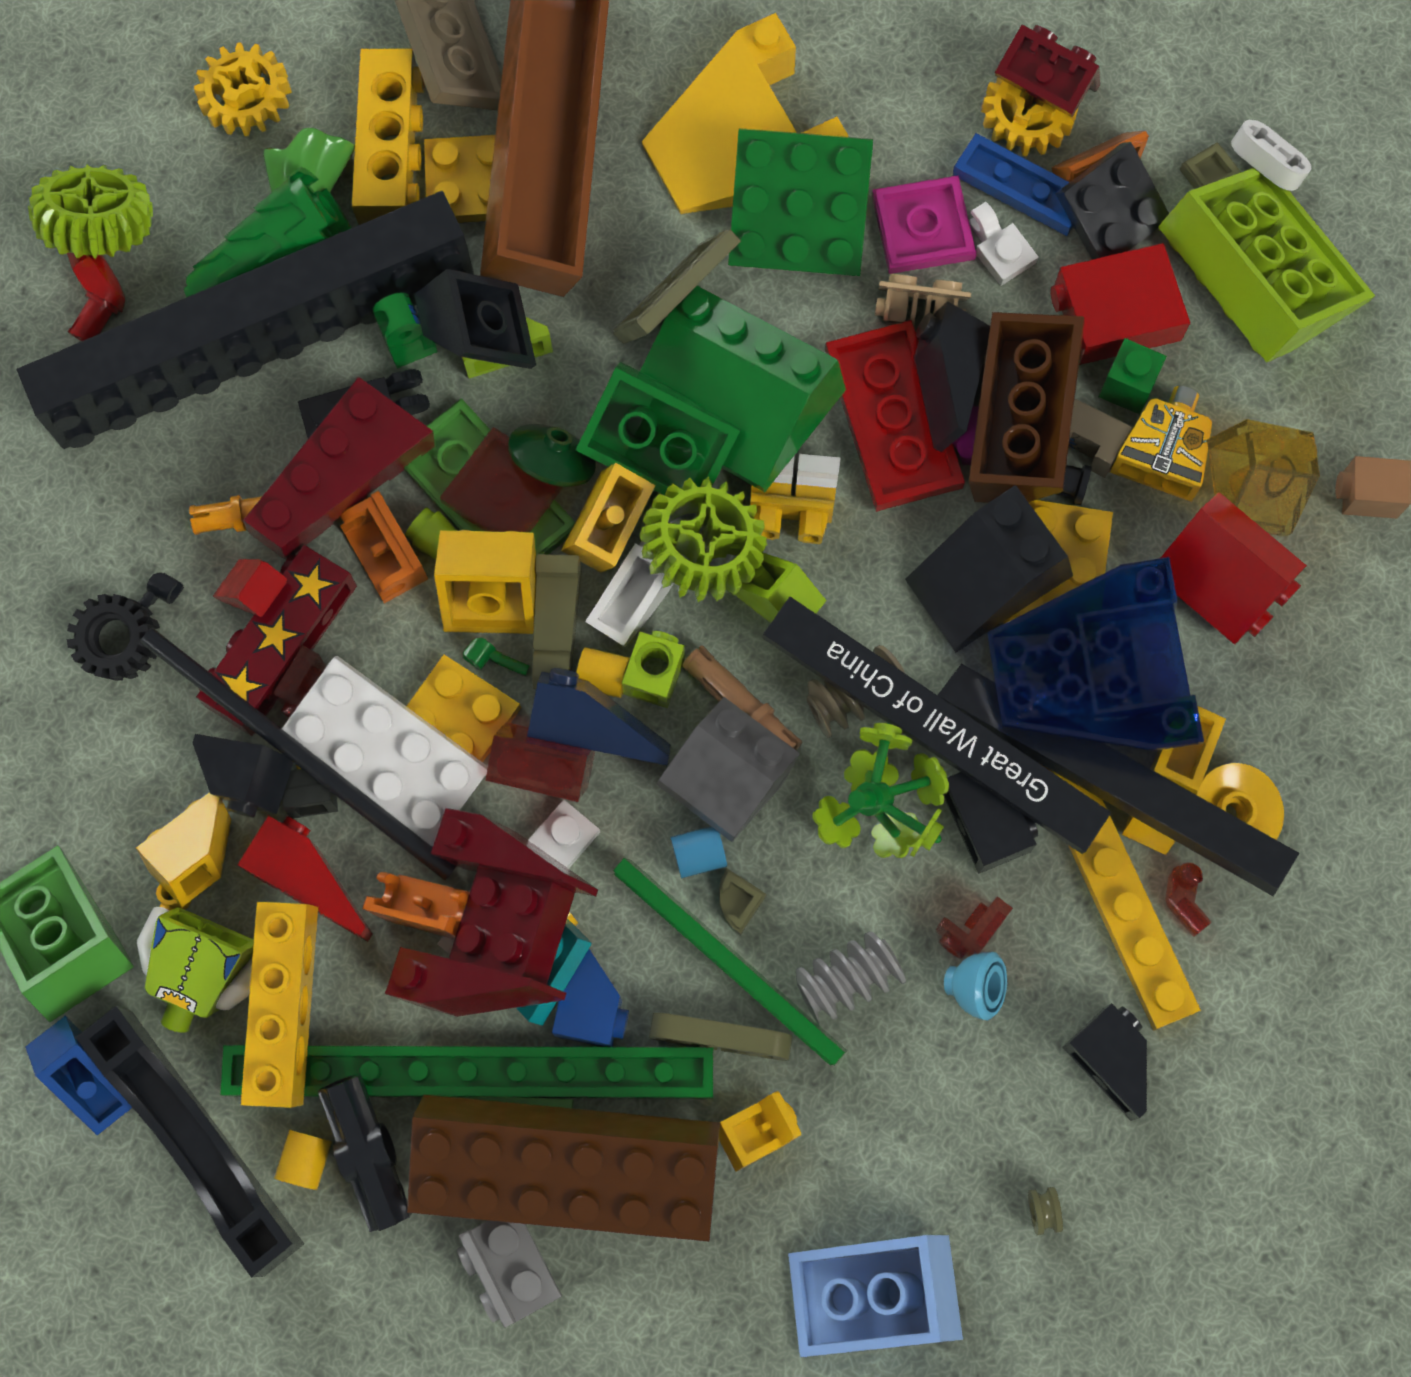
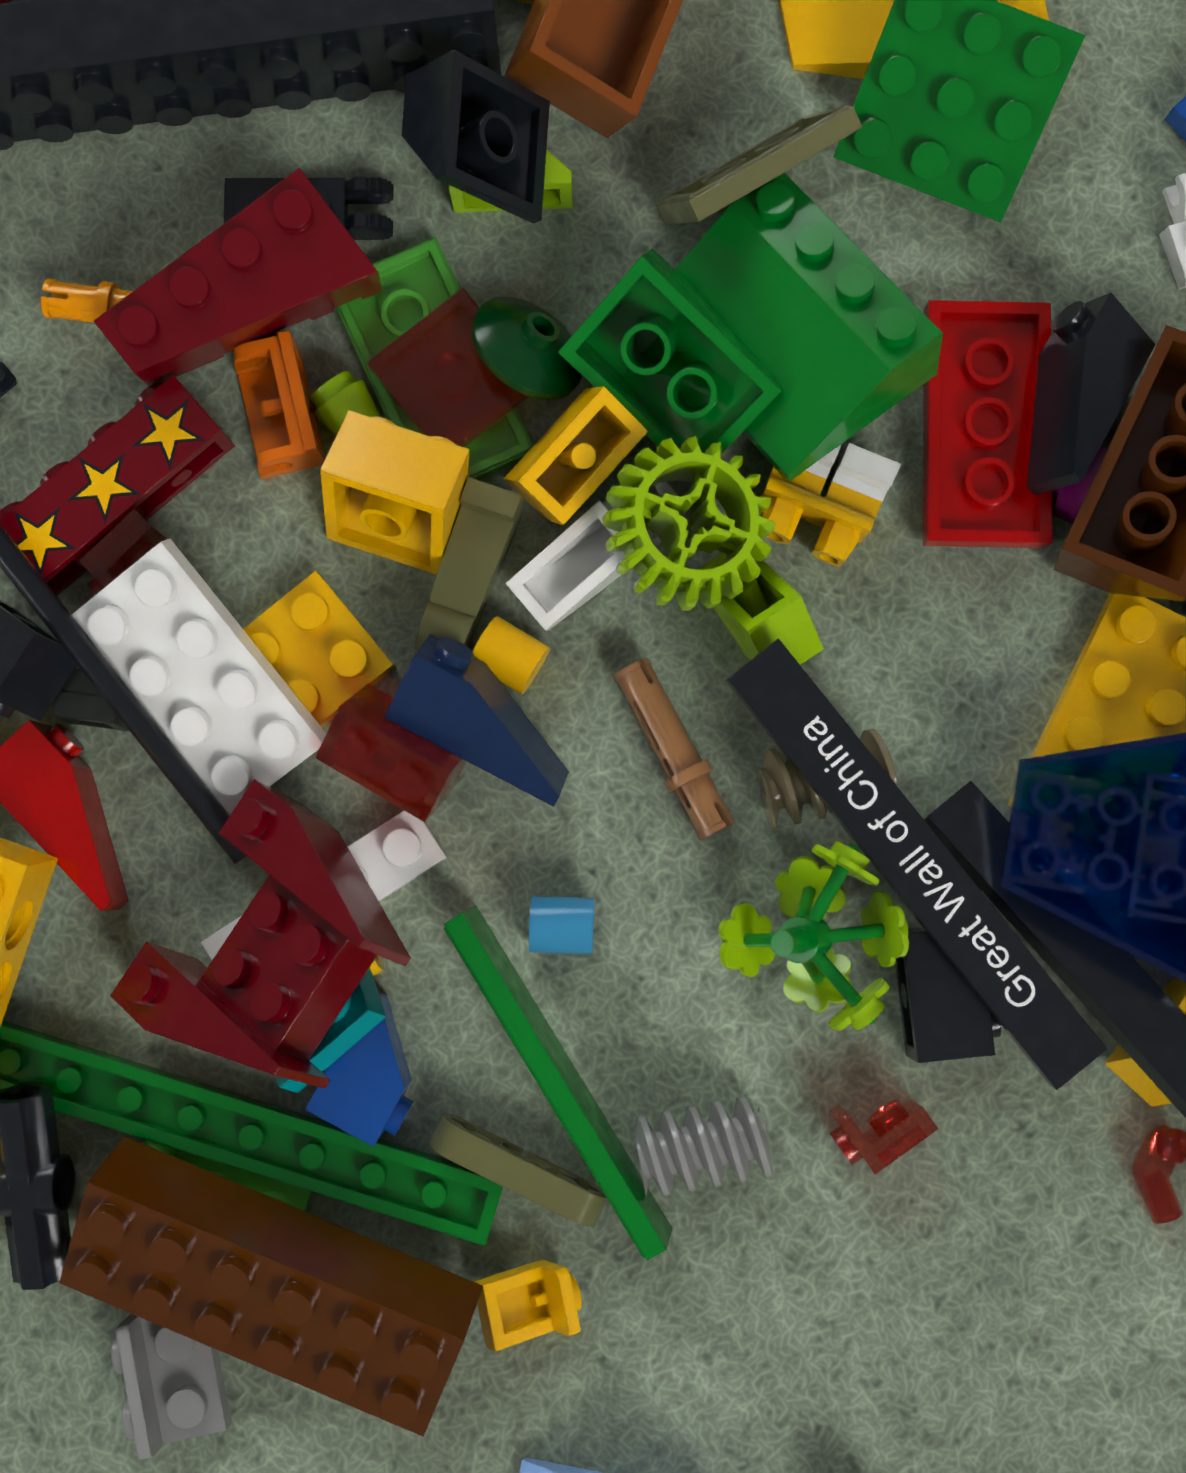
camera: 15 degrees right, 10 degrees up
(251, 586) = (91, 412): red slope -> none
(402, 329) = (378, 117): green leg -> none
(419, 904) = (188, 890): orange hinge -> none
(481, 651) = (363, 581): green hand -> none
(648, 687) = (571, 697): lime brick -> none
(728, 769) = (629, 835): flat silver slope -> none
(739, 900) = (594, 1000): olive tile -> none
(904, 286) = (1056, 253): tan hinge -> none
(923, 224) = (1105, 176): dark pink tile -> none
(978, 984) = (860, 1205): medium azure brick -> none
(989, 569) = (1050, 671): black slope -> none
(1114, 1058) = (1006, 1349): black slope -> none
(1134, 926) = (1082, 1190): yellow plate -> none

